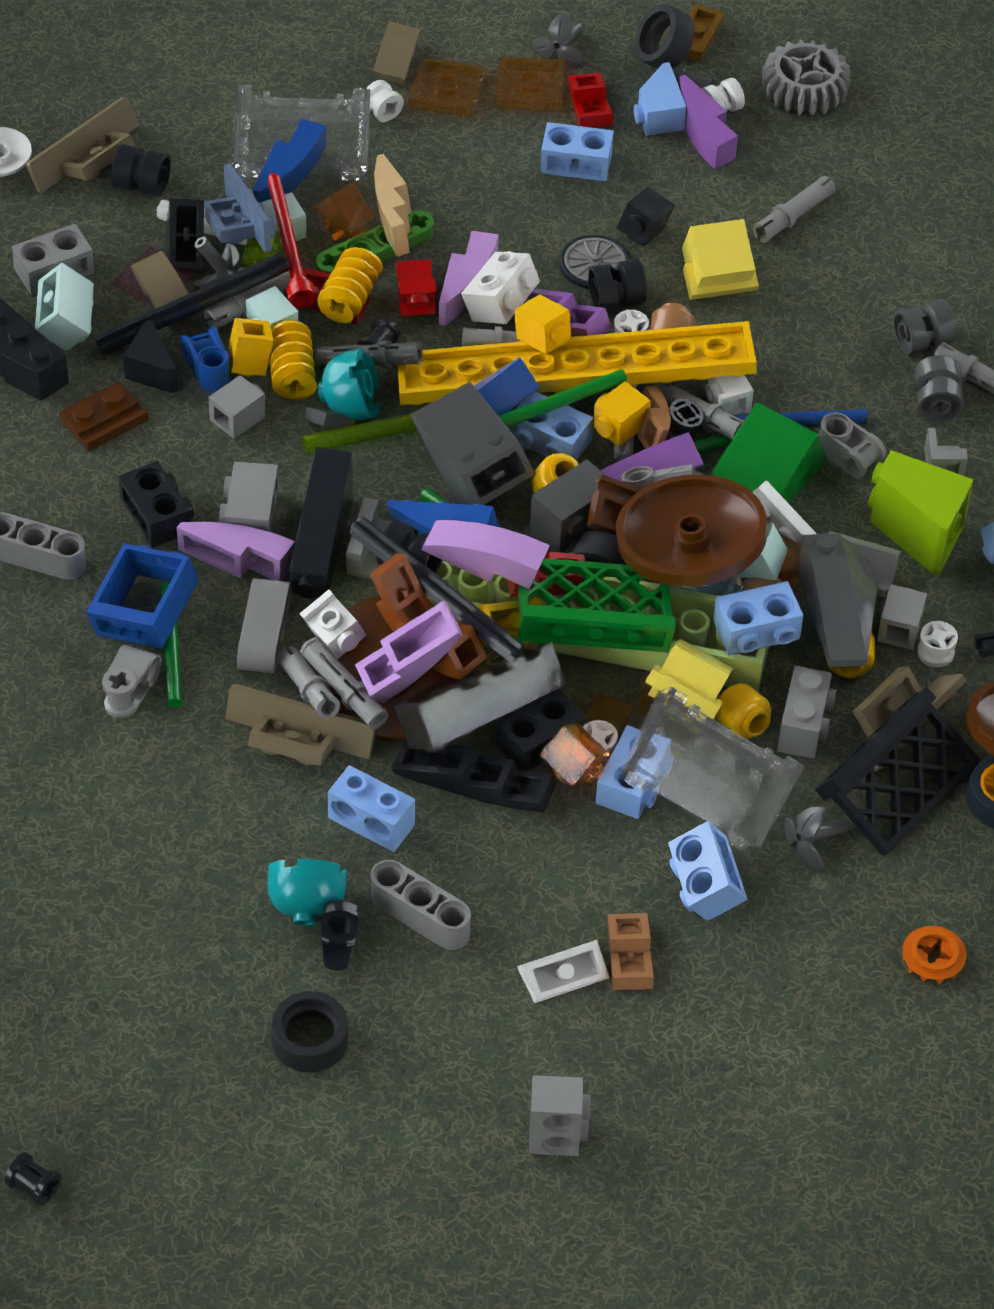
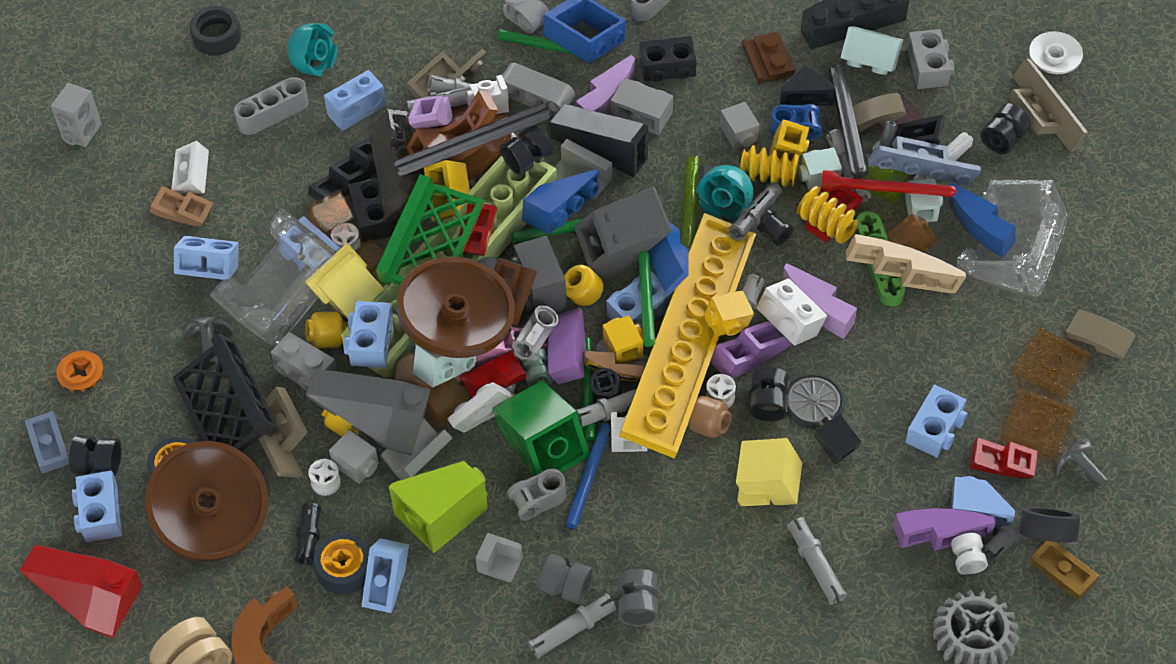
camera: 115 degrees right, 5 degrees up
(338, 933) = (270, 62): black hair -> none
(385, 102) = (1041, 306): white wheel -> none
(415, 288) = (819, 261): red brick -> none
(486, 550) = (487, 172): lavender slope -> none

